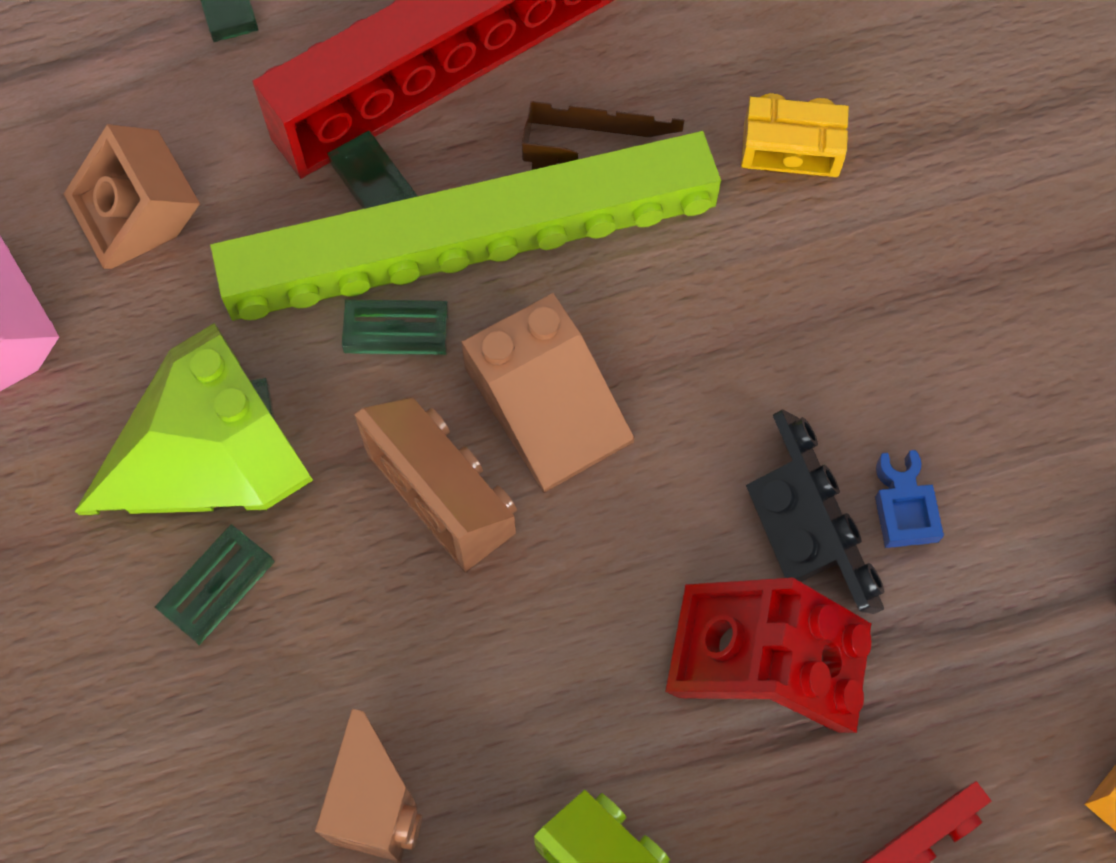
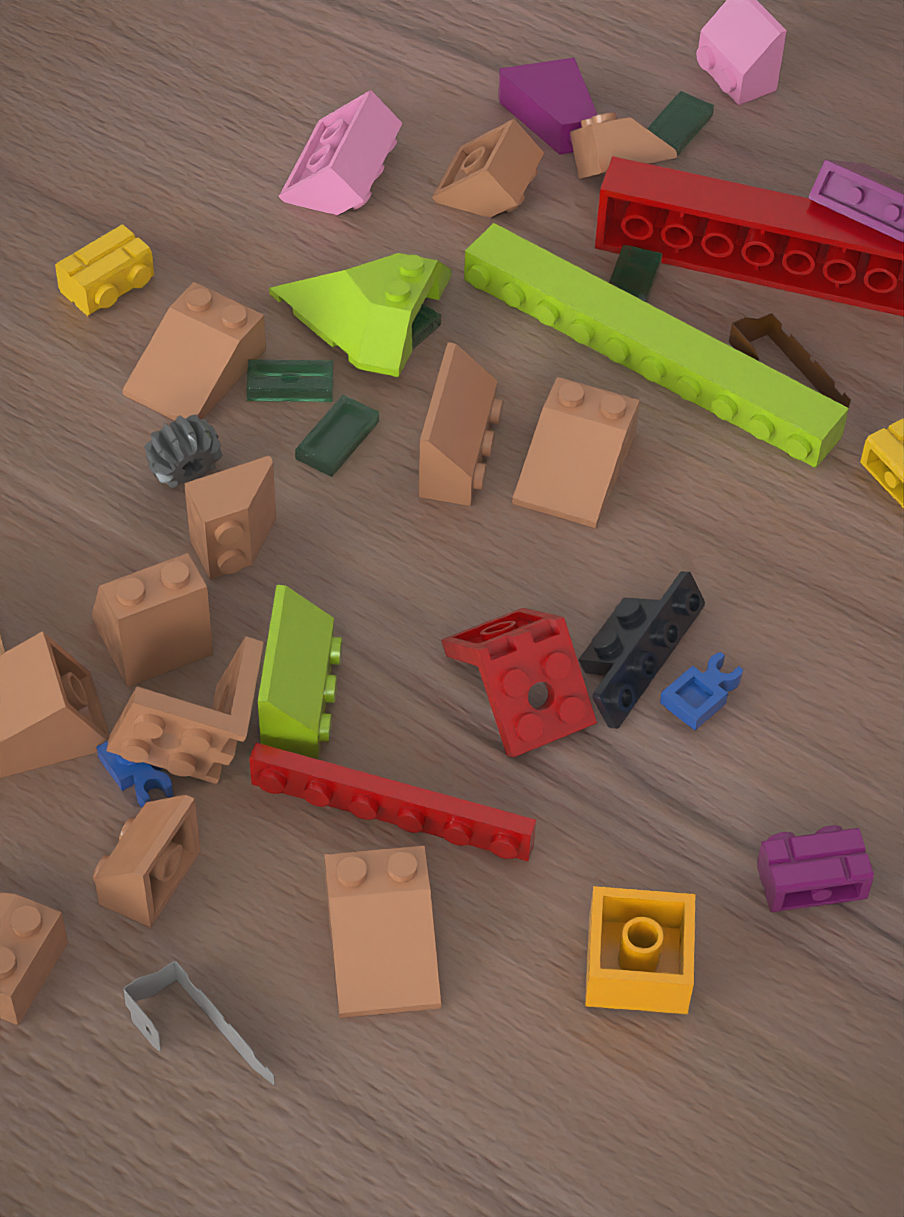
camera: 50 degrees right, 15 degrees down
(98, 73) = (547, 99): none -> magenta slope
(104, 660) = (196, 354): none -> nougat slope
(218, 70) = (622, 138): none -> nougat slope
(231, 776) = (183, 450): none -> dark grey gear
(326, 593) = (337, 435): none -> clear green tile
(403, 336) = (537, 359): clear green tile -> none

